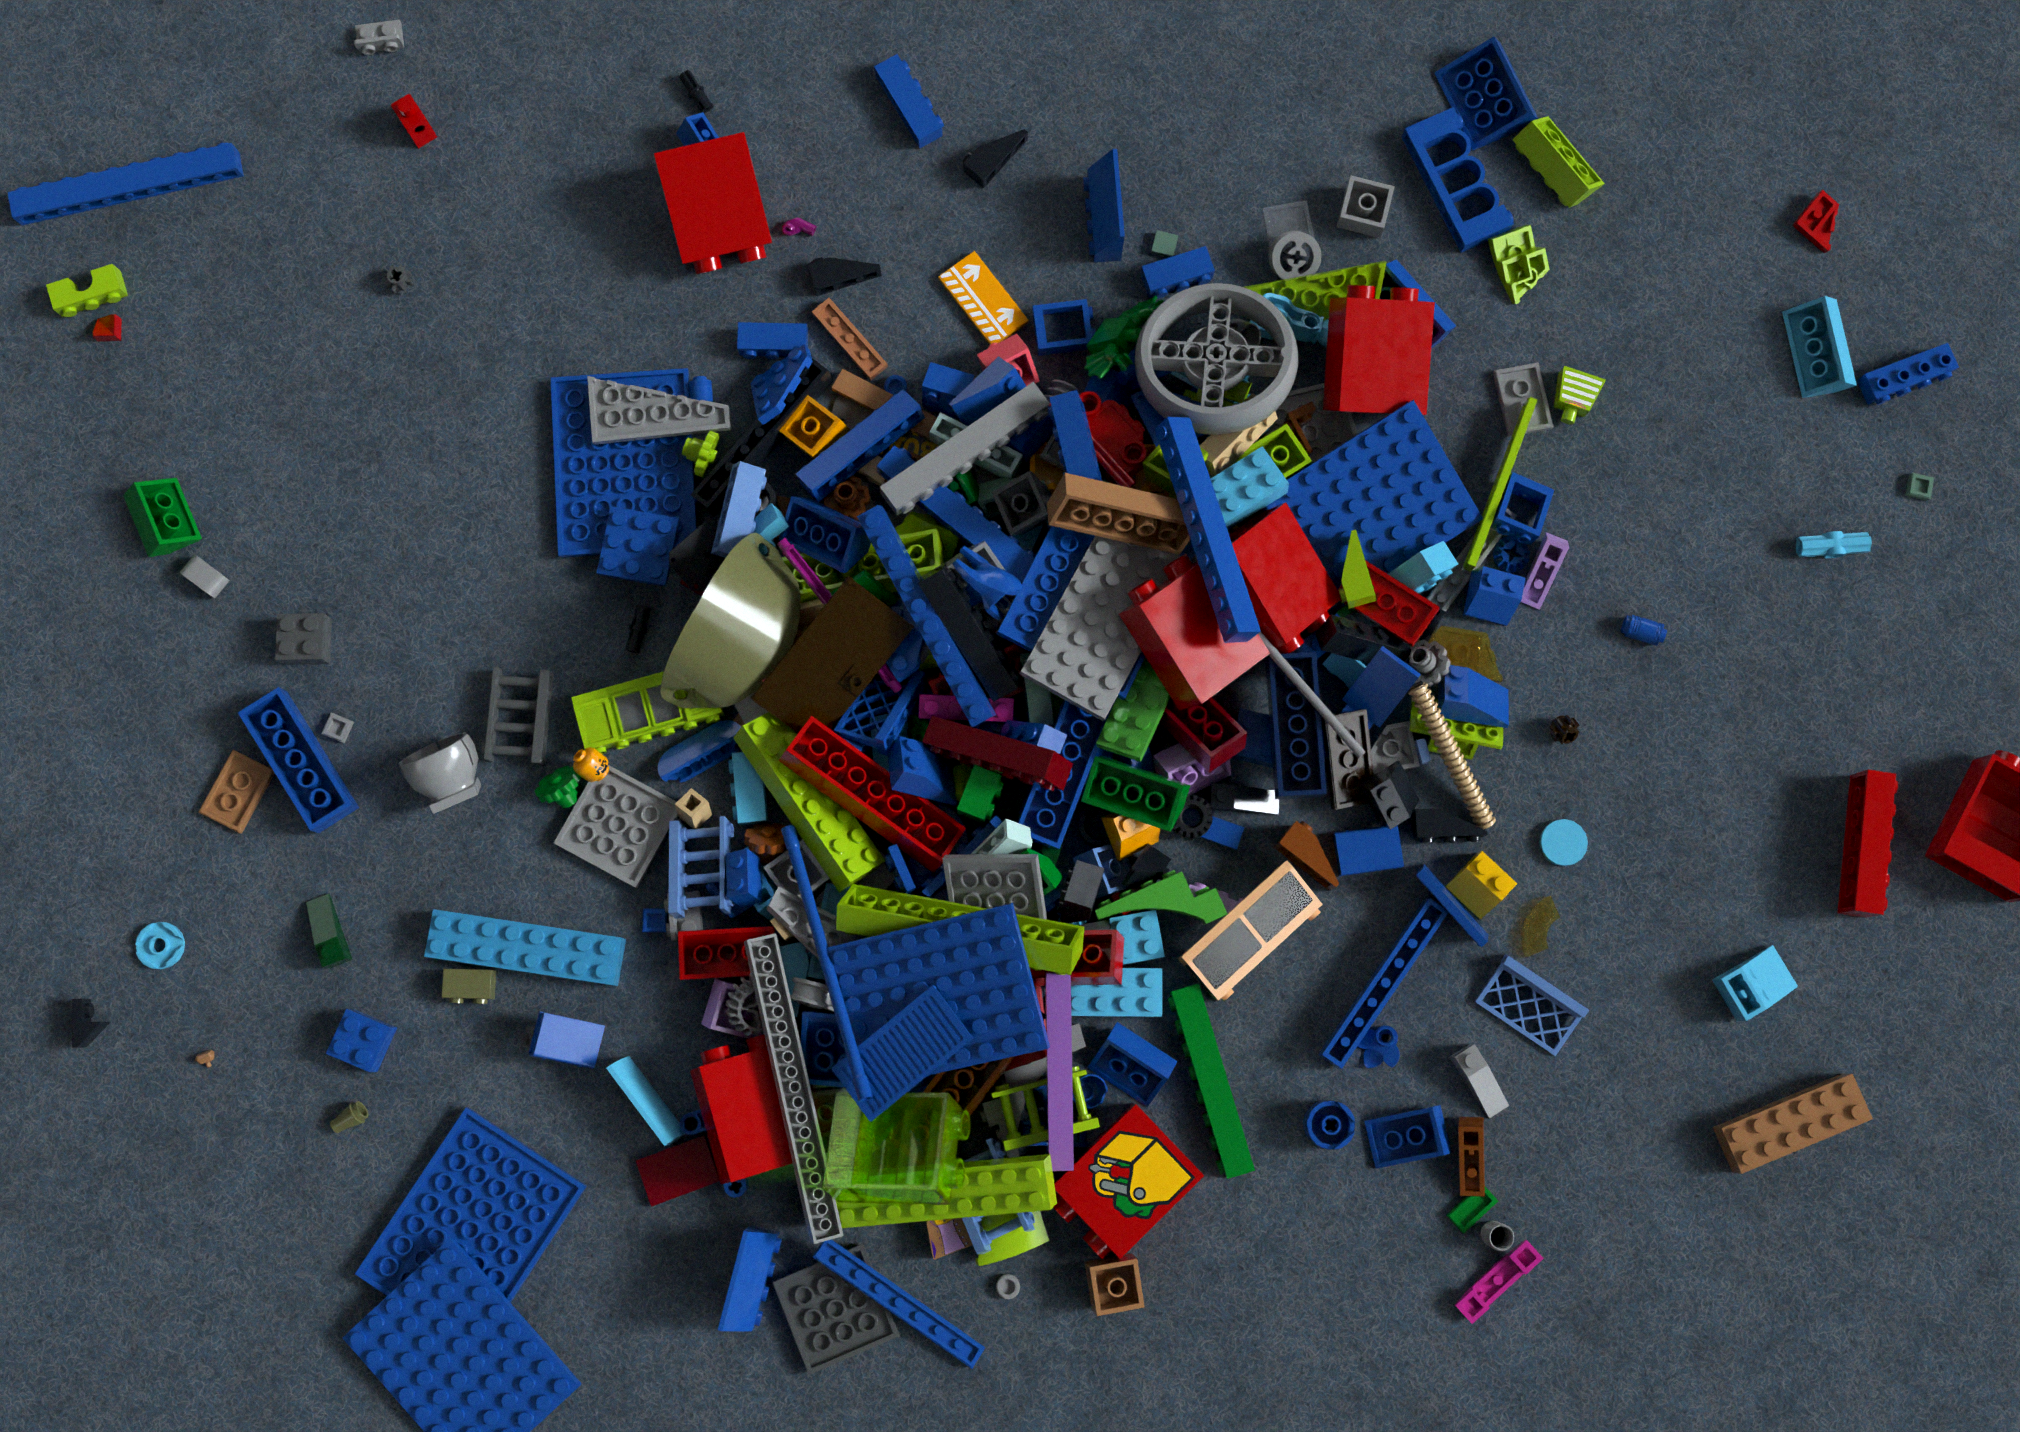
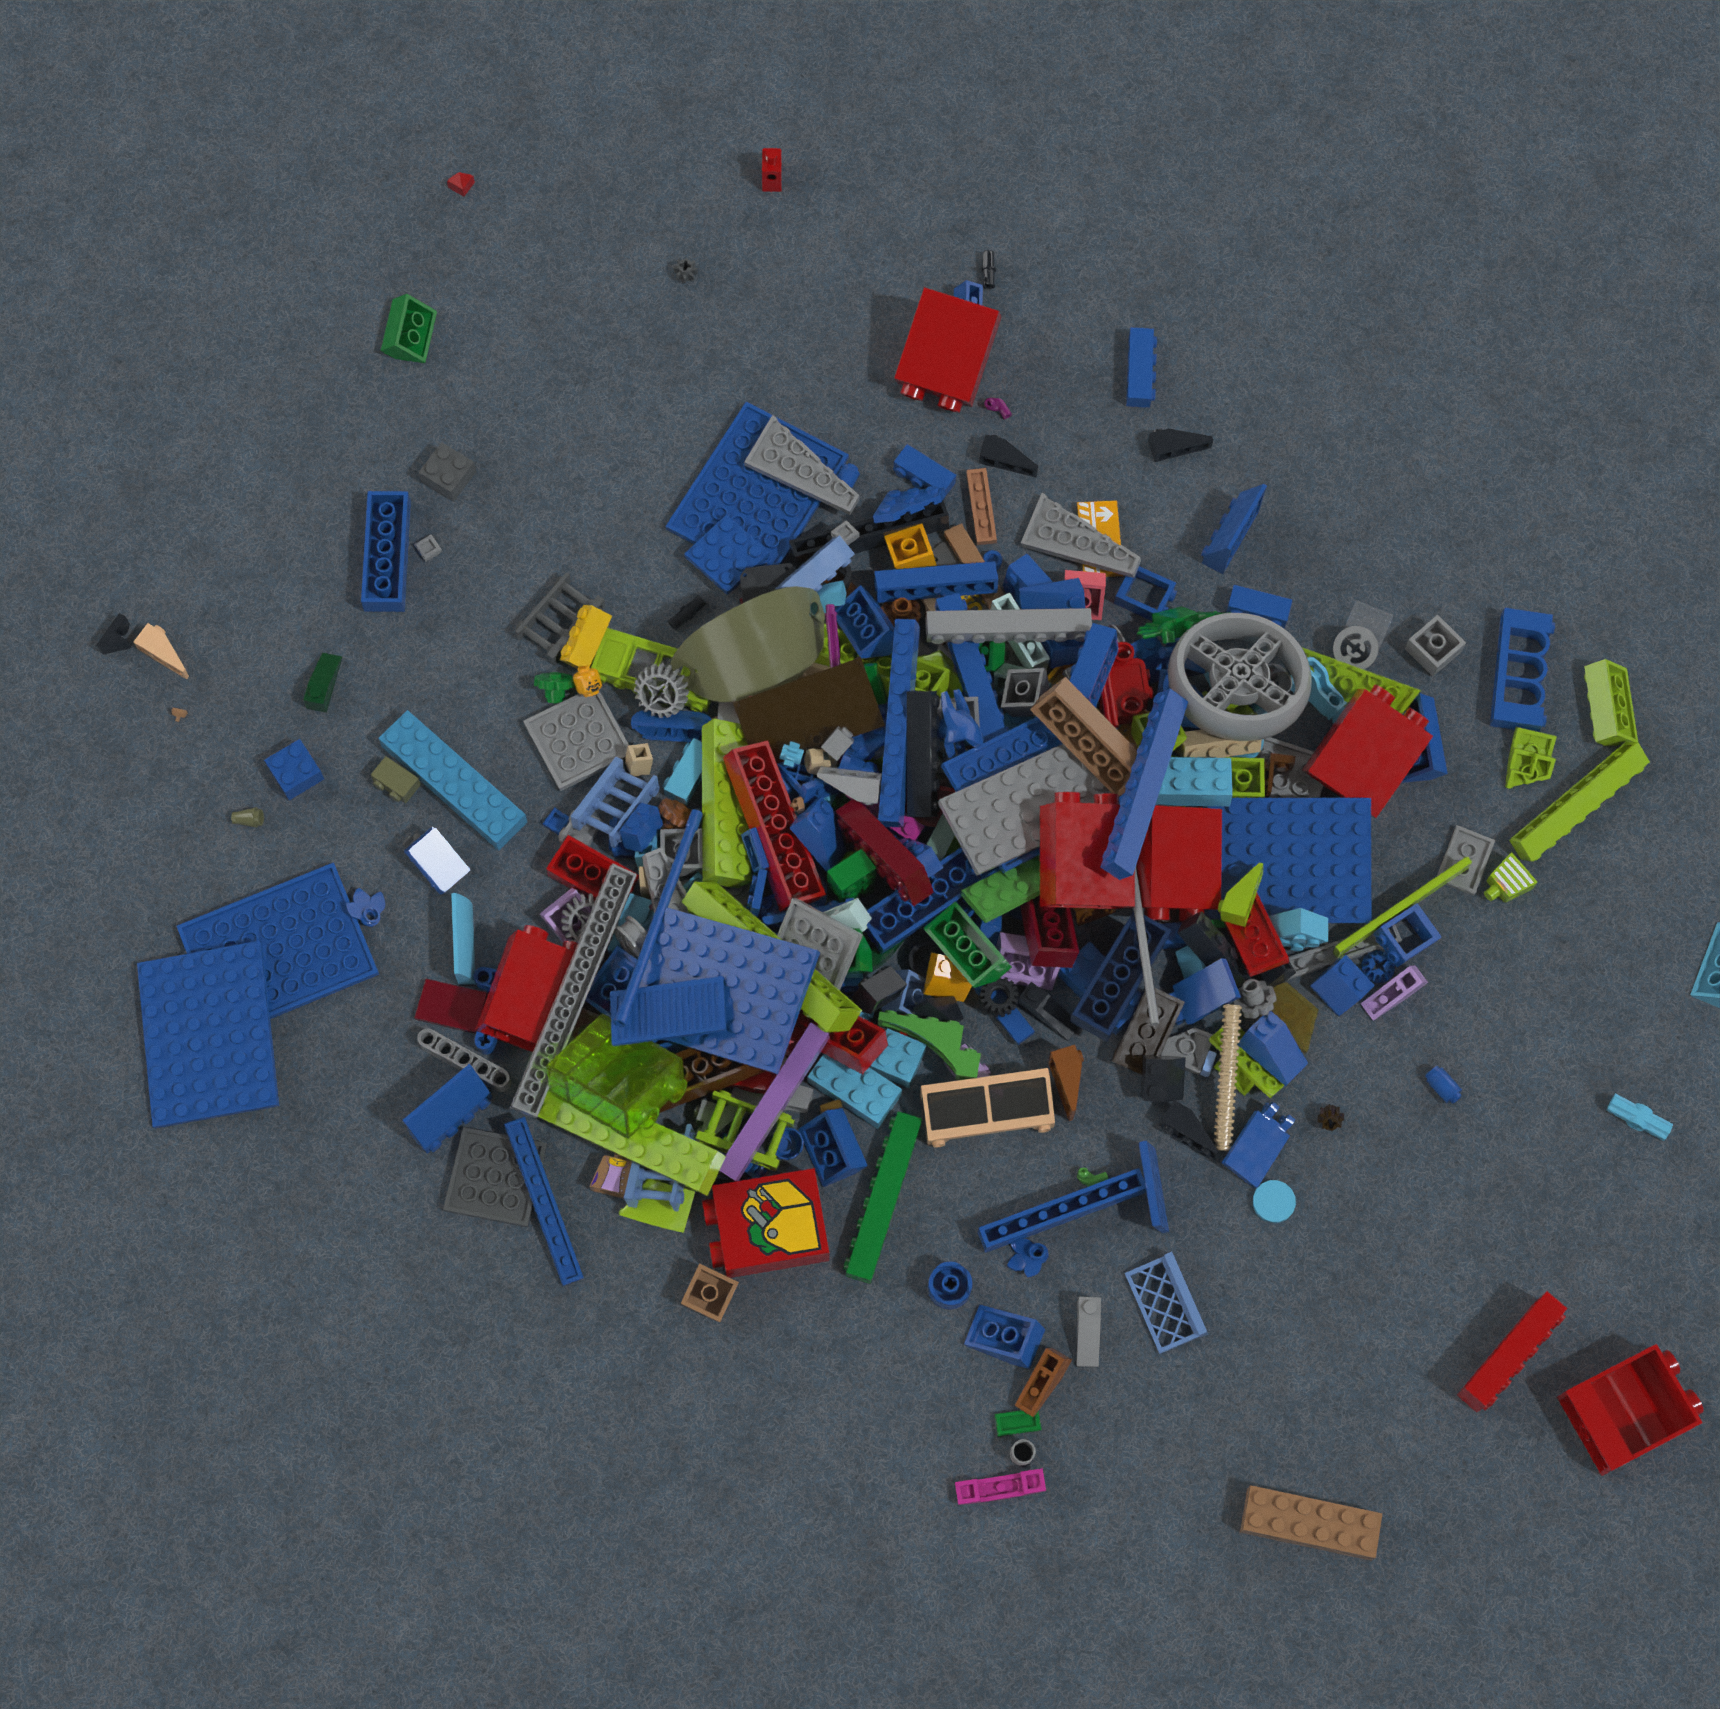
camera: 35 degrees right, 10 degrees down
(105, 287) = (478, 155): lime arch -> none
(125, 183) = (542, 94): blue brick -> none
(137, 1004) = (156, 645): none -> light nougat slope
(173, 948) = (206, 627): medium azure tile -> none
(204, 576) = (409, 388): light grey beam -> none
(237, 791) = (328, 547): medium nougat tile -> none
(379, 37) = (787, 99): light grey bracket -> none
(444, 774) = (481, 620): light grey plate -> none
(526, 1126) = (364, 905): none -> blue plate
(558, 721) = (585, 636): none -> yellow brick
(657, 721) = (675, 699): none -> light grey gear
(701, 452) = (818, 517): lime plant -> none
(716, 1215) = (457, 1053): none -> light grey beam
(741, 451) = (846, 531): none -> light grey tile
(842, 712) = (791, 754): none -> medium azure gear
(870, 830) = (754, 850): none -> blue tile
(873, 701) = (816, 758): none -> tan rock
(880, 673) = (838, 742): none -> light grey brick
(883, 759) = (798, 804): none -> medium nougat rock
(915, 686) = (853, 763): none -> blue leg
(924, 704) = (859, 785): none -> light grey slope
(957, 317) = (1070, 537): none -> light grey wing
(1007, 1286) = (630, 1246): light grey tile -> none
(1105, 1028) = (830, 1106): none -> pearl gold tile
(1164, 244) = (1263, 581): sand green tile -> none
(1367, 850) = (1118, 1109): blue piece -> none
(1387, 934) = (1089, 1179): none -> bright green arm
(1481, 885) = (1187, 1189): yellow slope -> none
(1486, 94) = (1587, 622): blue slope -> none
(1517, 798) = (1258, 1145): none -> blue tile
(1537, 925) = (1210, 1249): clear yellow tile -> none
(1591, 275) = (1579, 801): none -> lime brick
(1755, 984) = (1353, 1400): medium azure slope -> none

